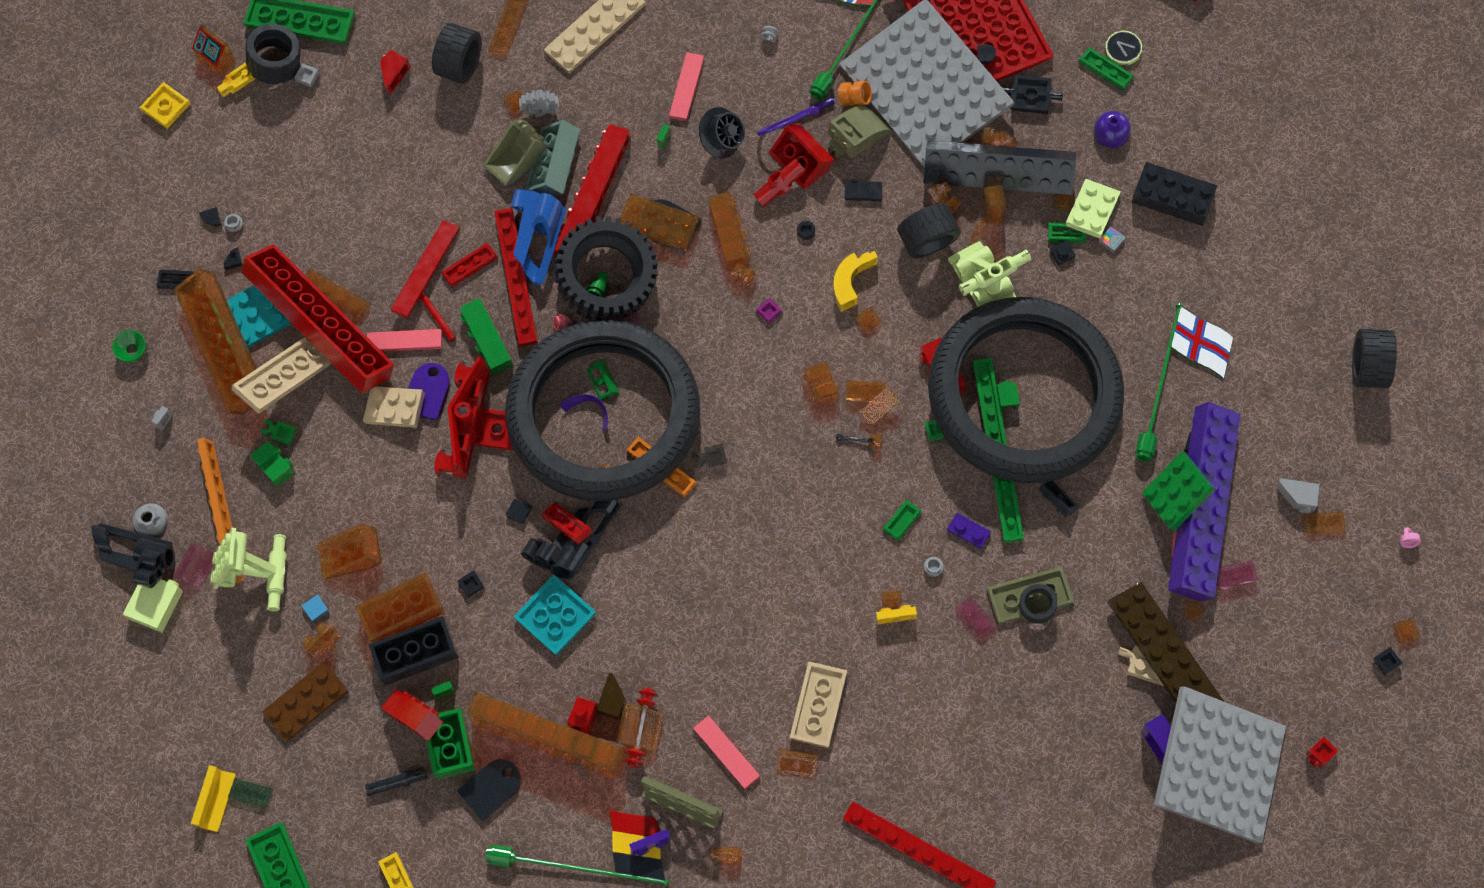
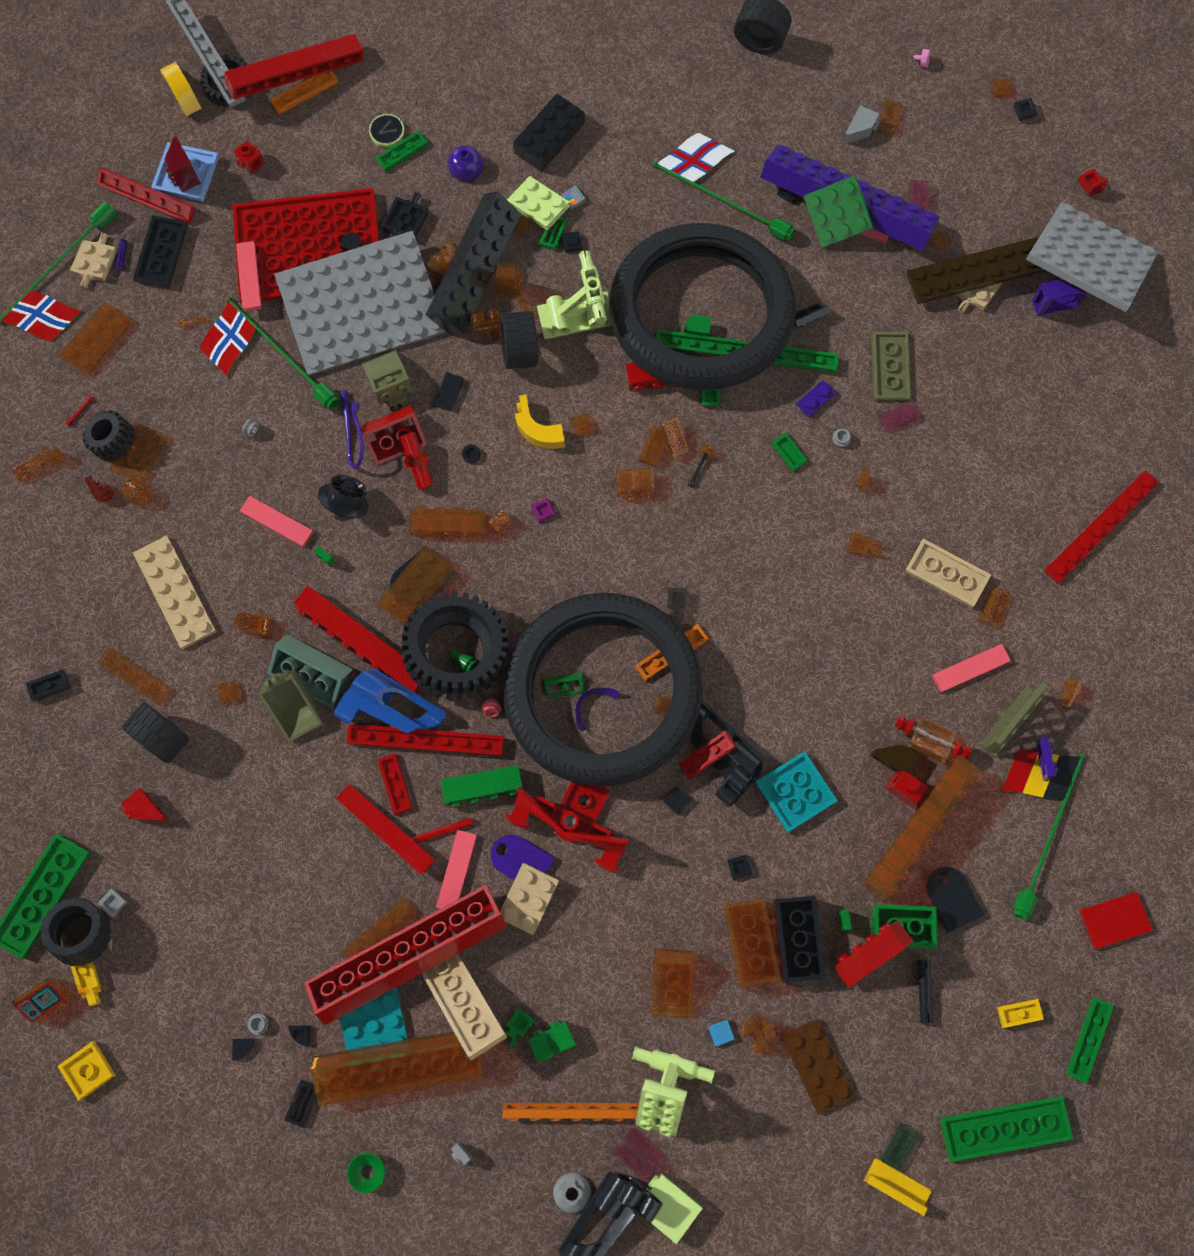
camera: 80 degrees left, 5 degrees up
(538, 103) = (244, 665): light grey gear -> none
(582, 102) = (258, 624): none -> clear orange piece
(823, 613) = (860, 545): none -> clear orange plate
(854, 93) = (347, 368): orange wheel -> none
(904, 613) = (880, 487): yellow plate -> none
(1038, 588) = (910, 346): black tyre -> none

